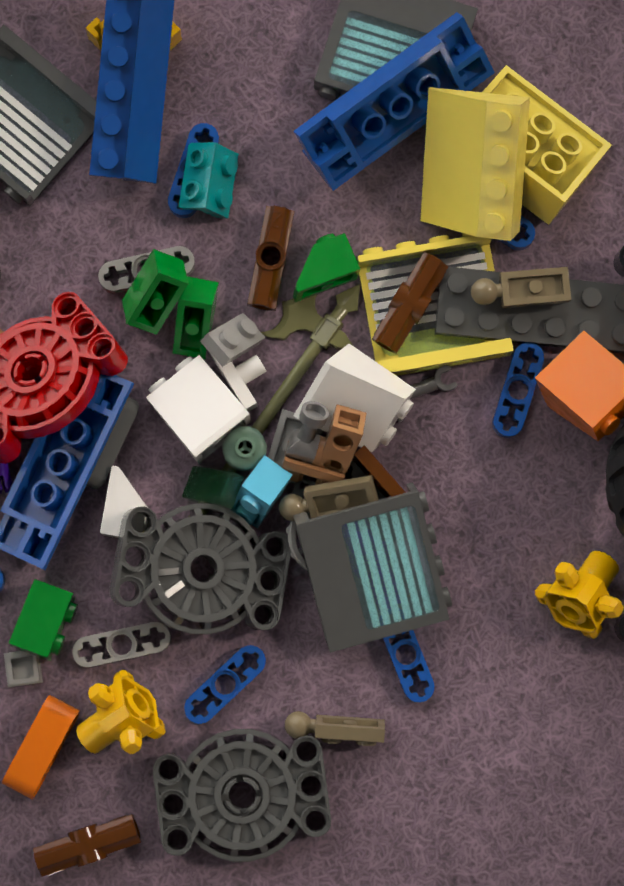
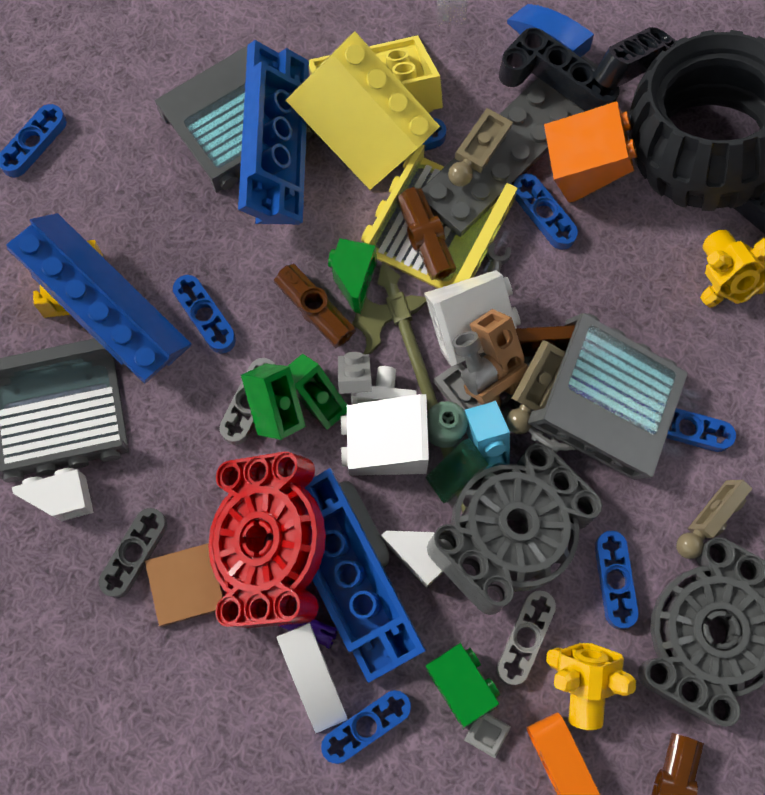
camera: 50 degrees left, 10 degrees down
(209, 179) = (219, 305): teal bracket -> none

